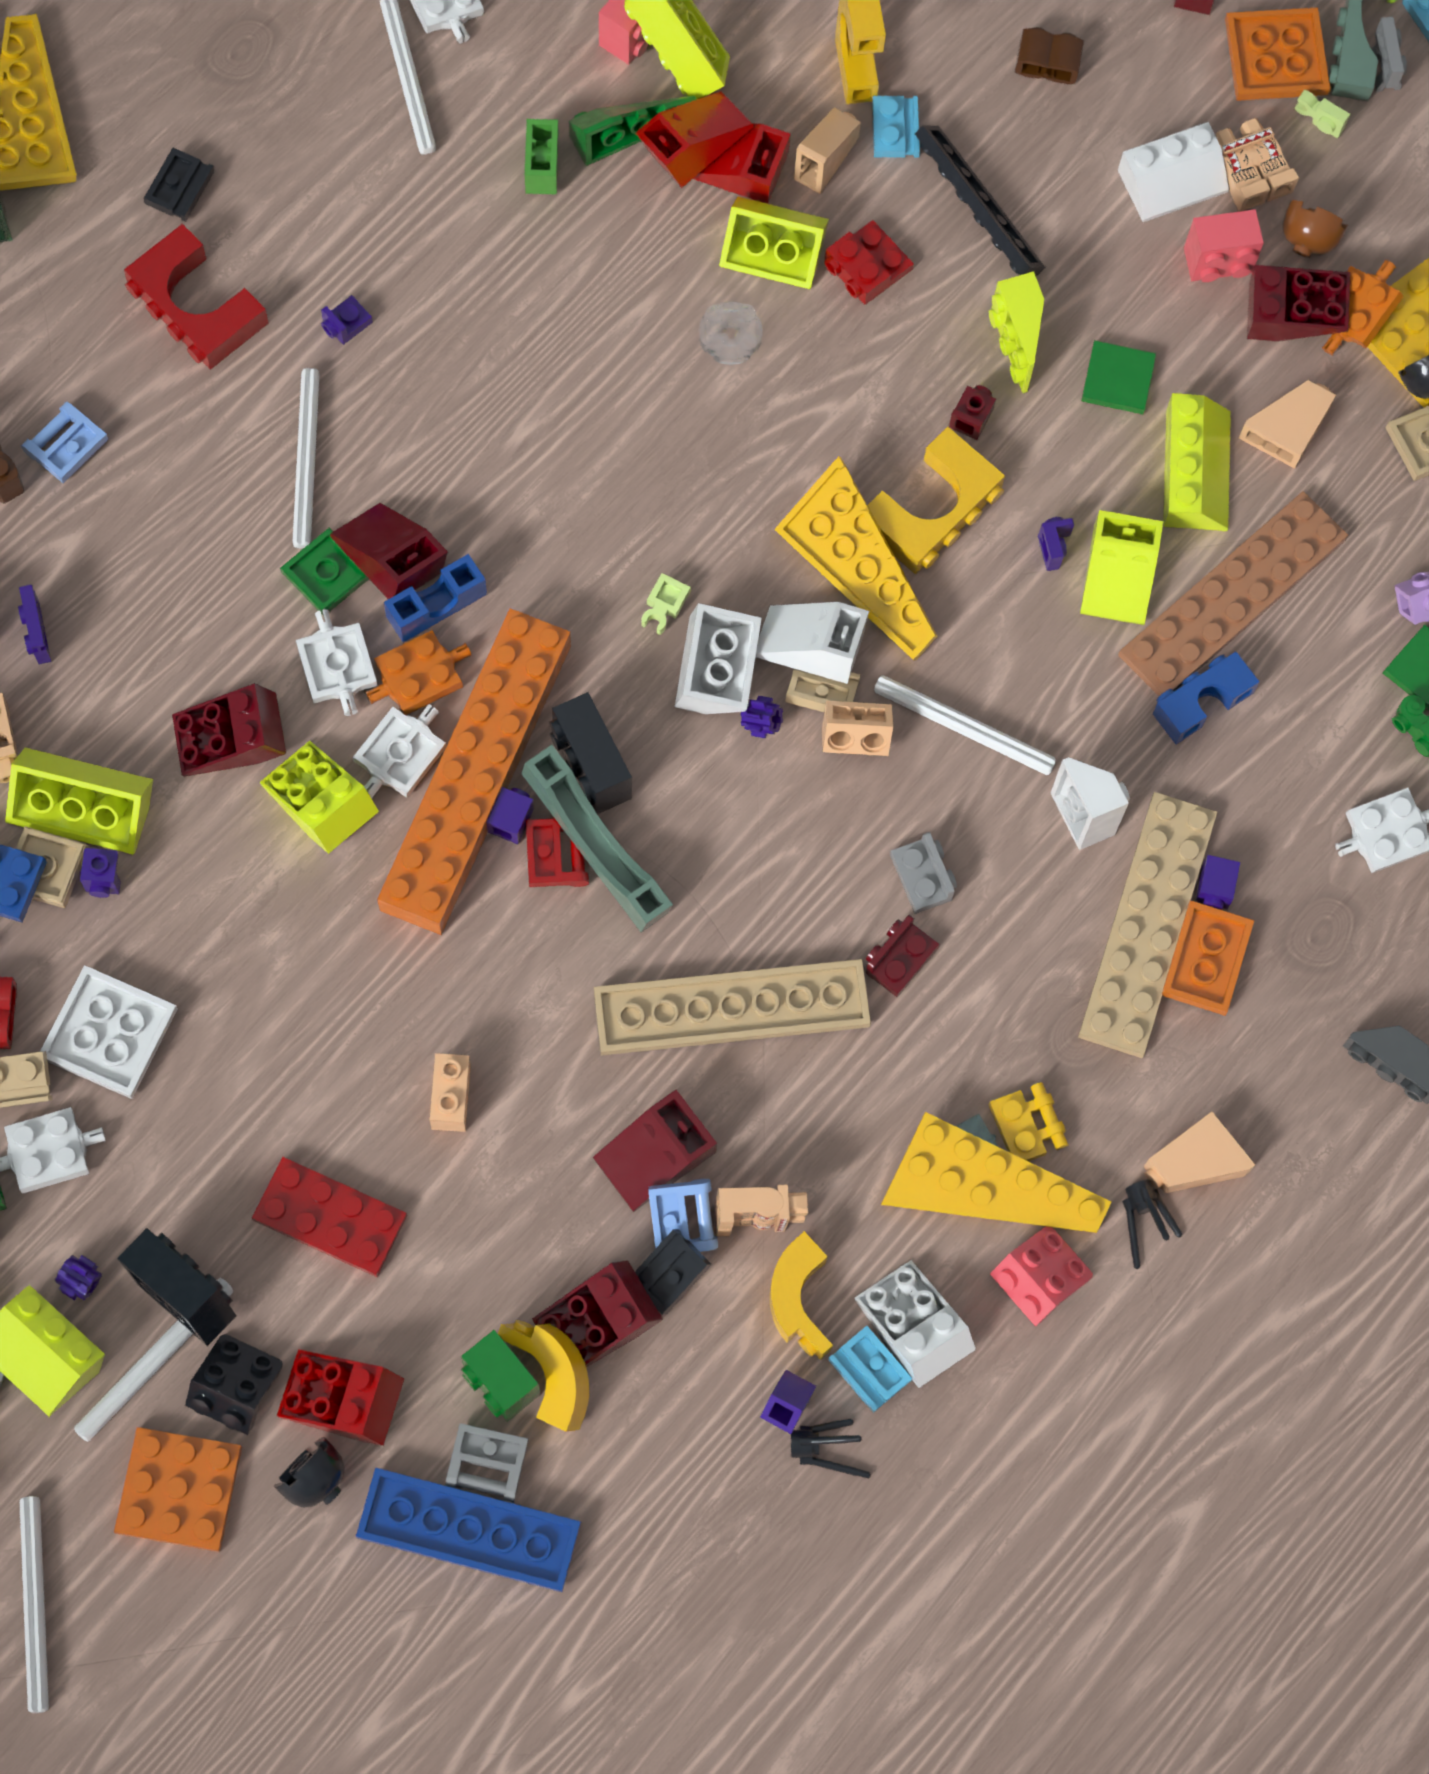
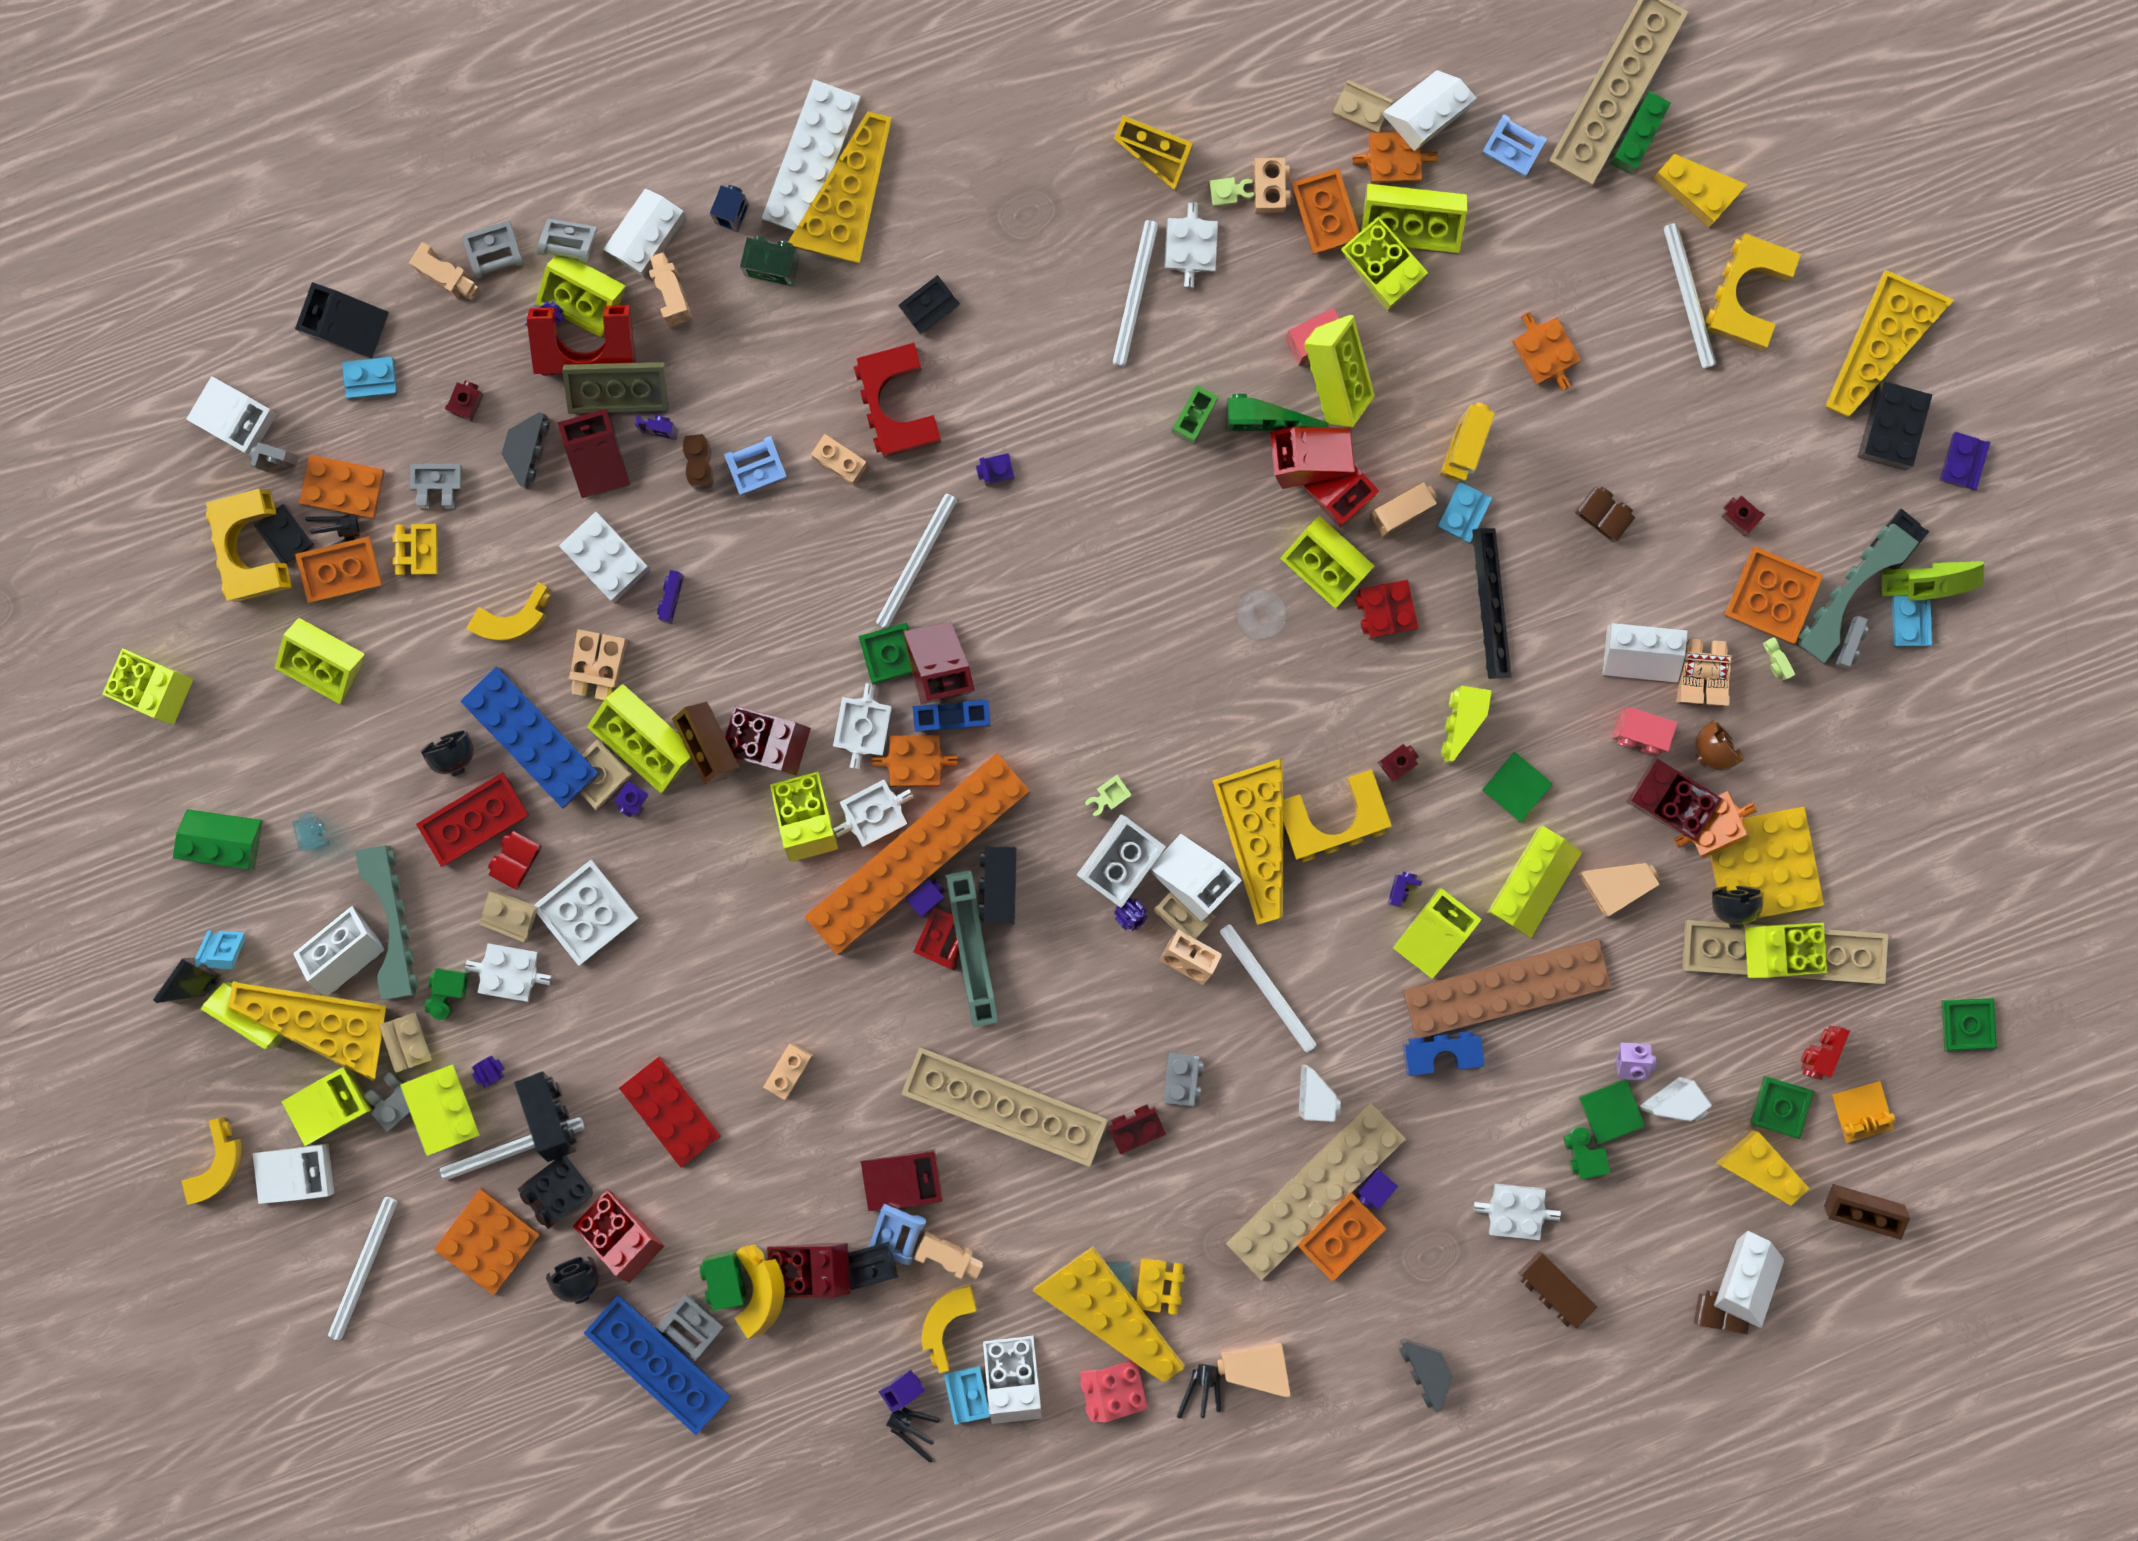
camera: 30 degrees right, 15 degrees up
(158, 763) = (705, 743): none -> reddish brown brick
(159, 388) = (839, 460): none -> light nougat brick

